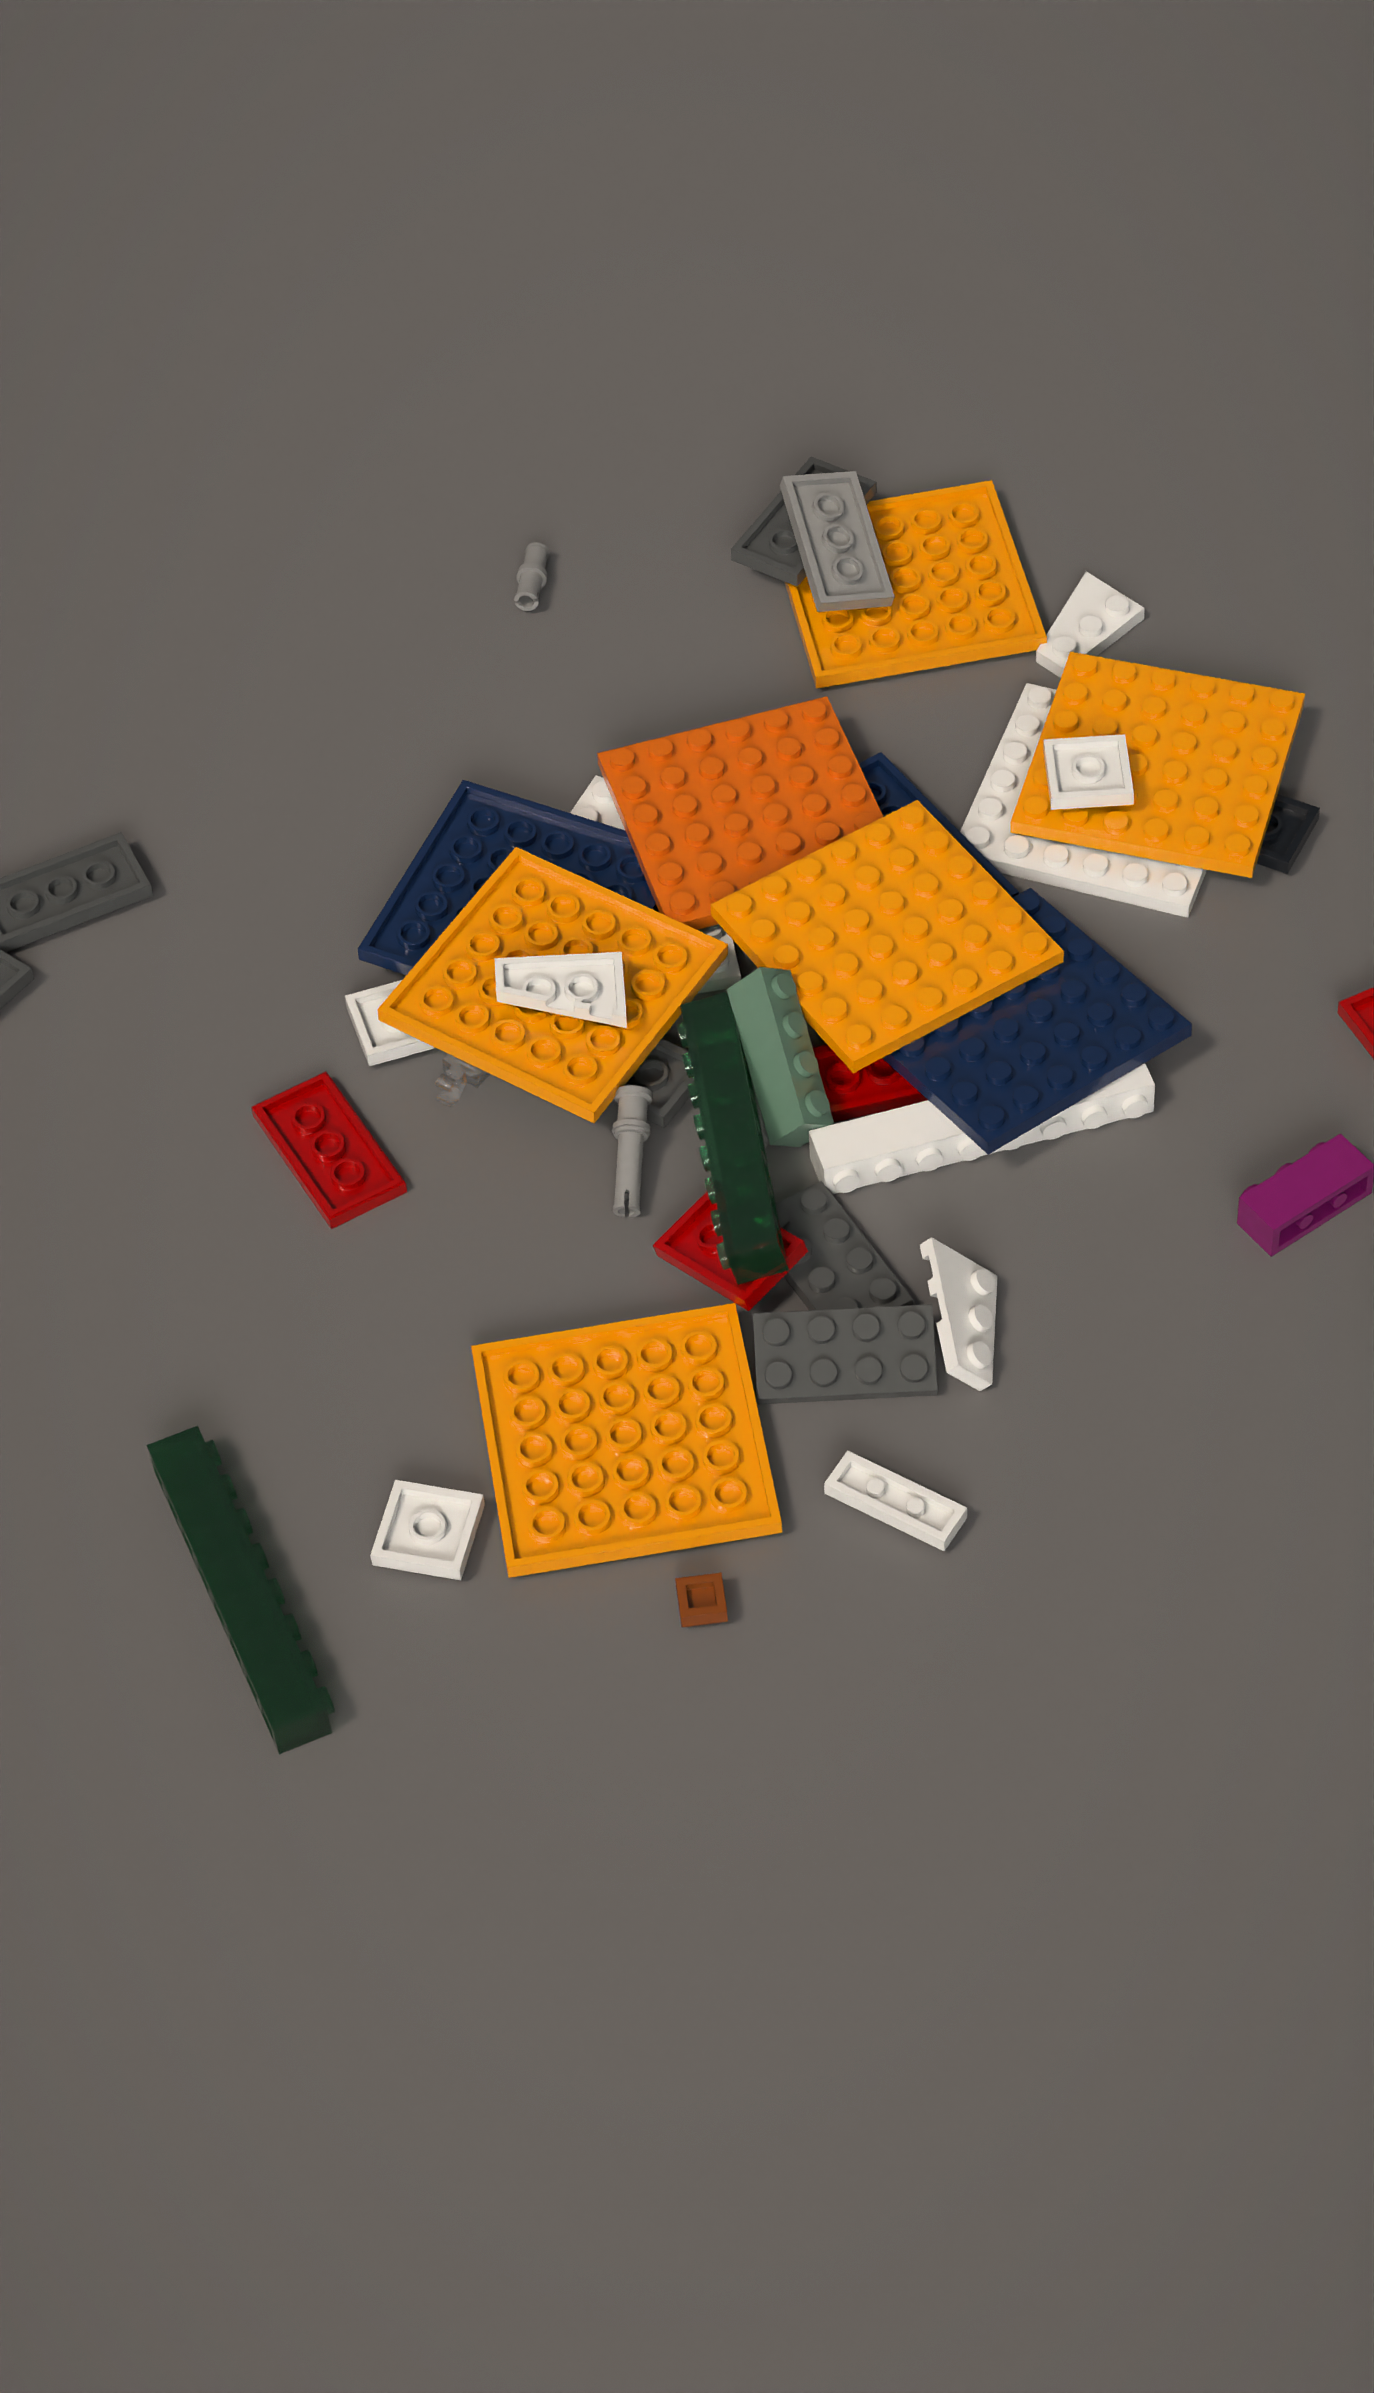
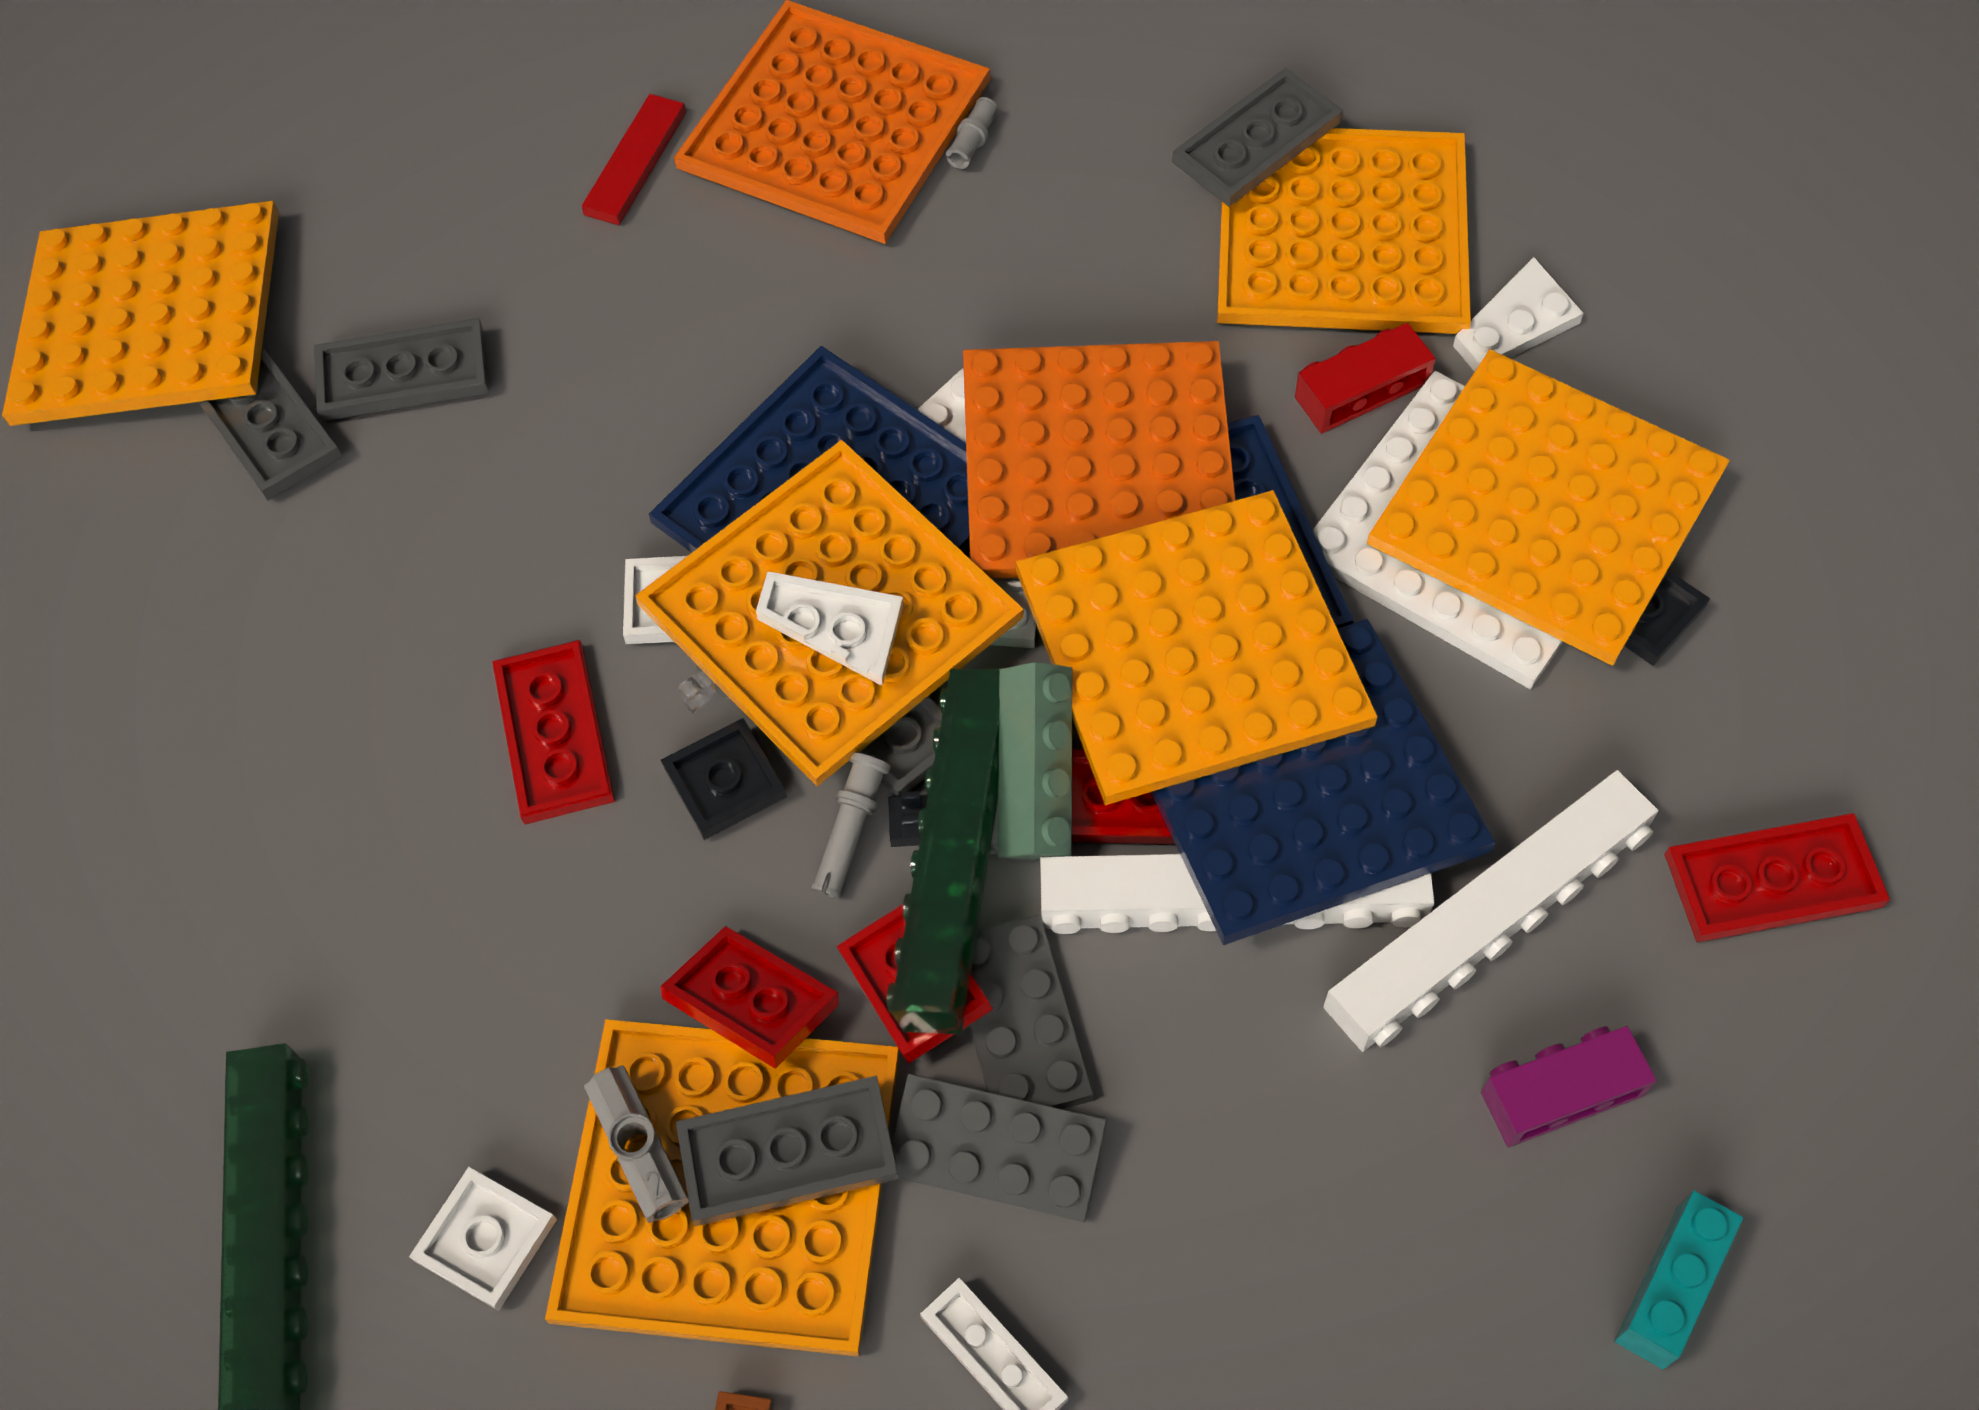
camera: 15 degrees right, 10 degrees up
(211, 668) = (633, 159): none -> red tile
(393, 593) = (833, 120): none -> orange plate
(502, 1146) = (723, 778): none -> black plate
(554, 1432) = (648, 1169): none -> light grey piece
(592, 1295) = (750, 996): none -> red plate
(669, 1392) = (785, 1151): none -> dark grey plate
(679, 1138) = (904, 818): none -> black tile
(836, 541) = (1281, 169): light grey plate -> none
(965, 702) = (1364, 377): none -> red brick
(967, 1311) = (1146, 1125): white wing -> none
(1088, 772) = (1467, 501): white plate -> none
(1203, 1085) = (1489, 911): none -> white brick

